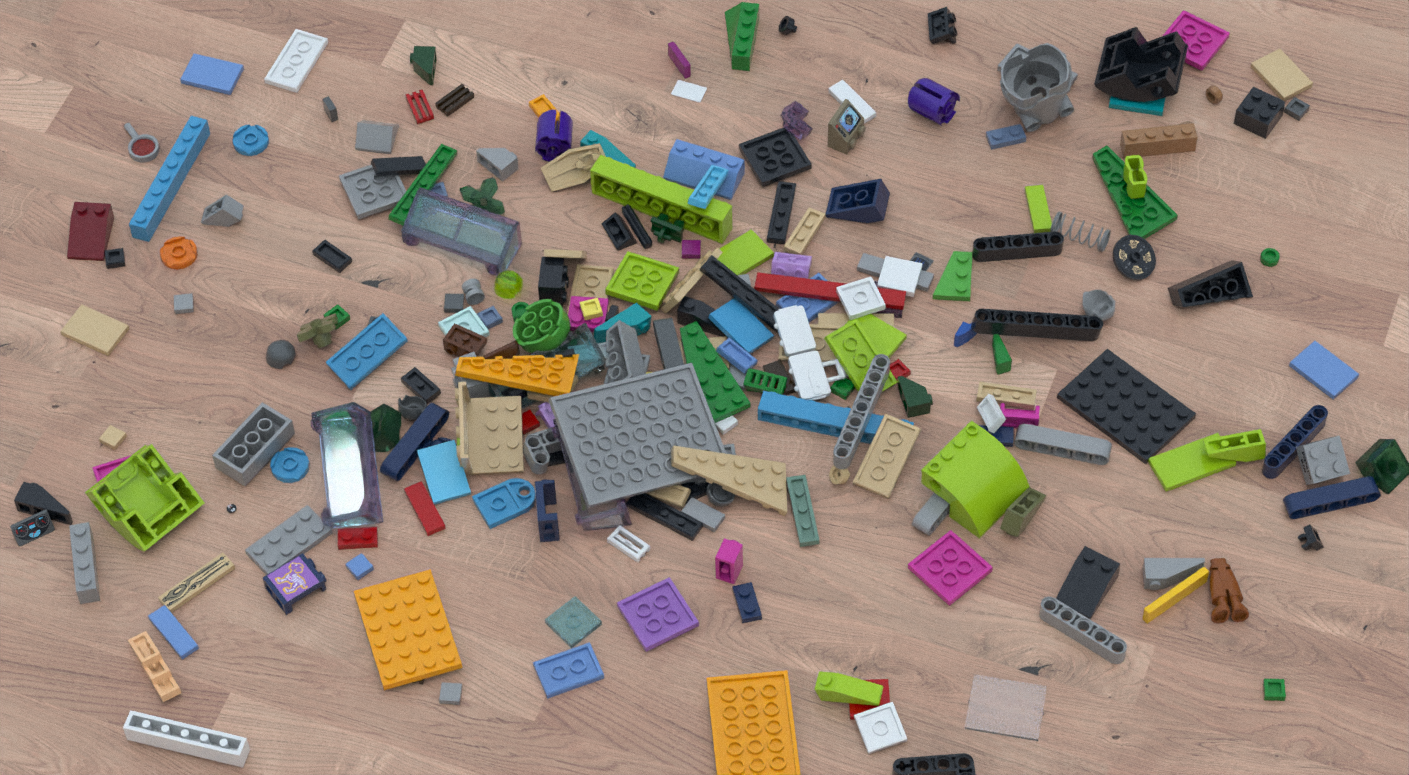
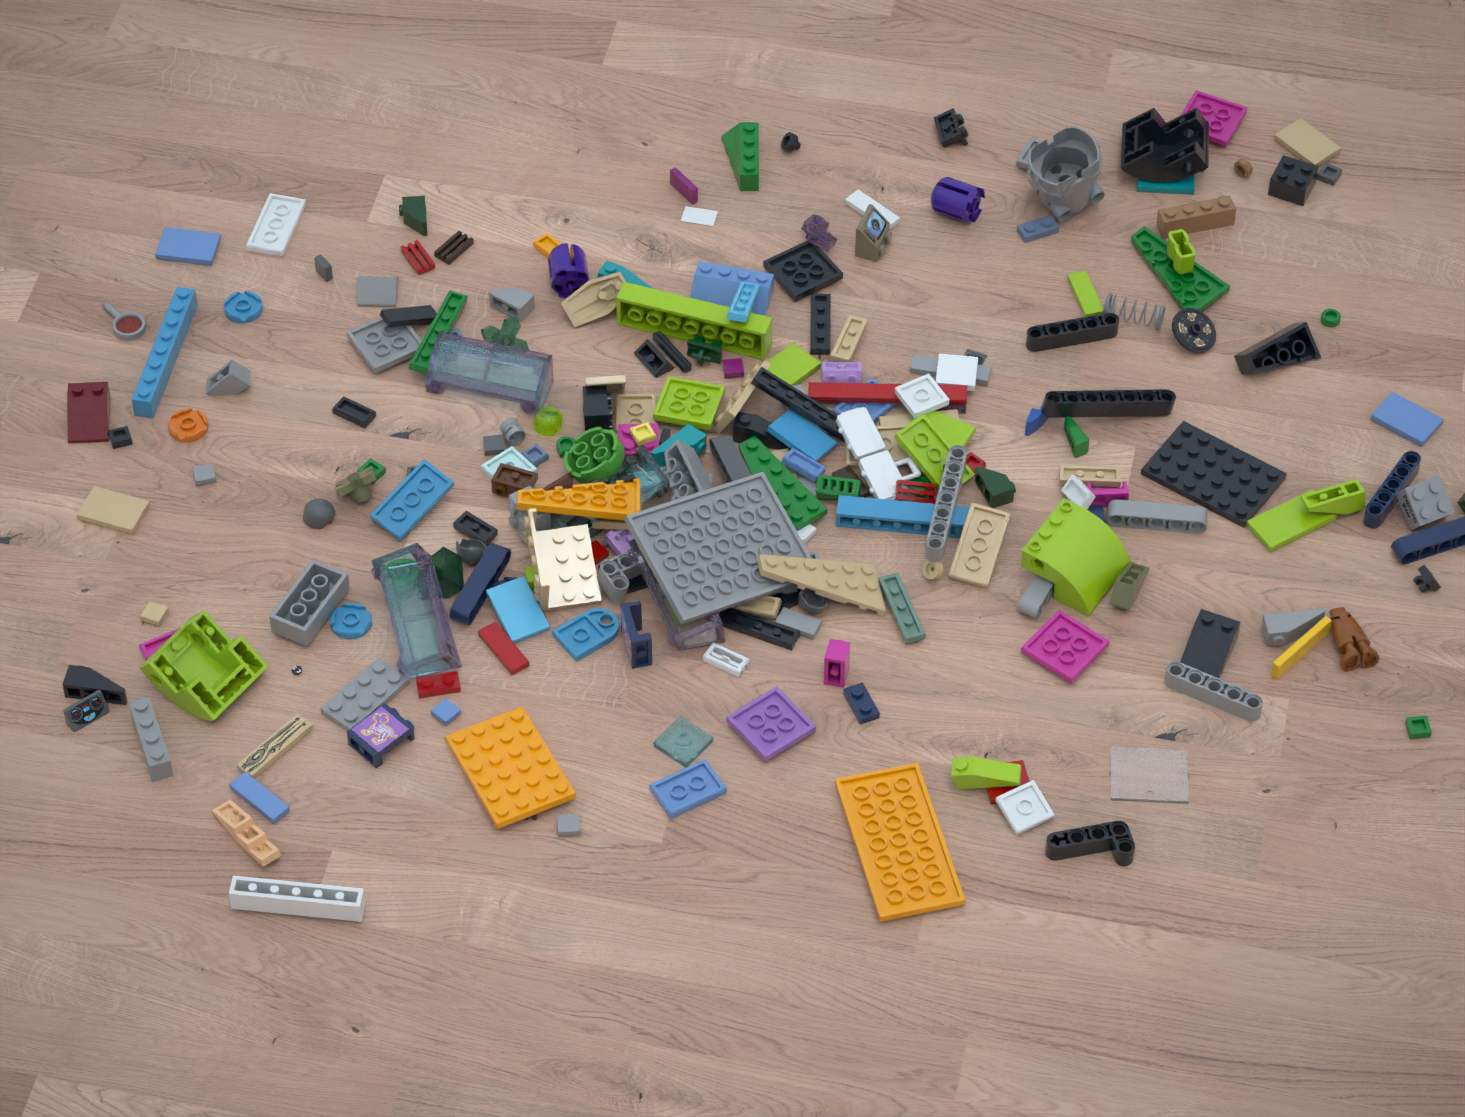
camera: 10 degrees left, 5 degrees down
(852, 397) = (930, 493): none -> red tile
(859, 202) = (900, 305): dark blue slope -> none
(956, 278) = (1014, 369): bright green wing -> none
(1098, 304) = (1167, 377): light grey hair -> none

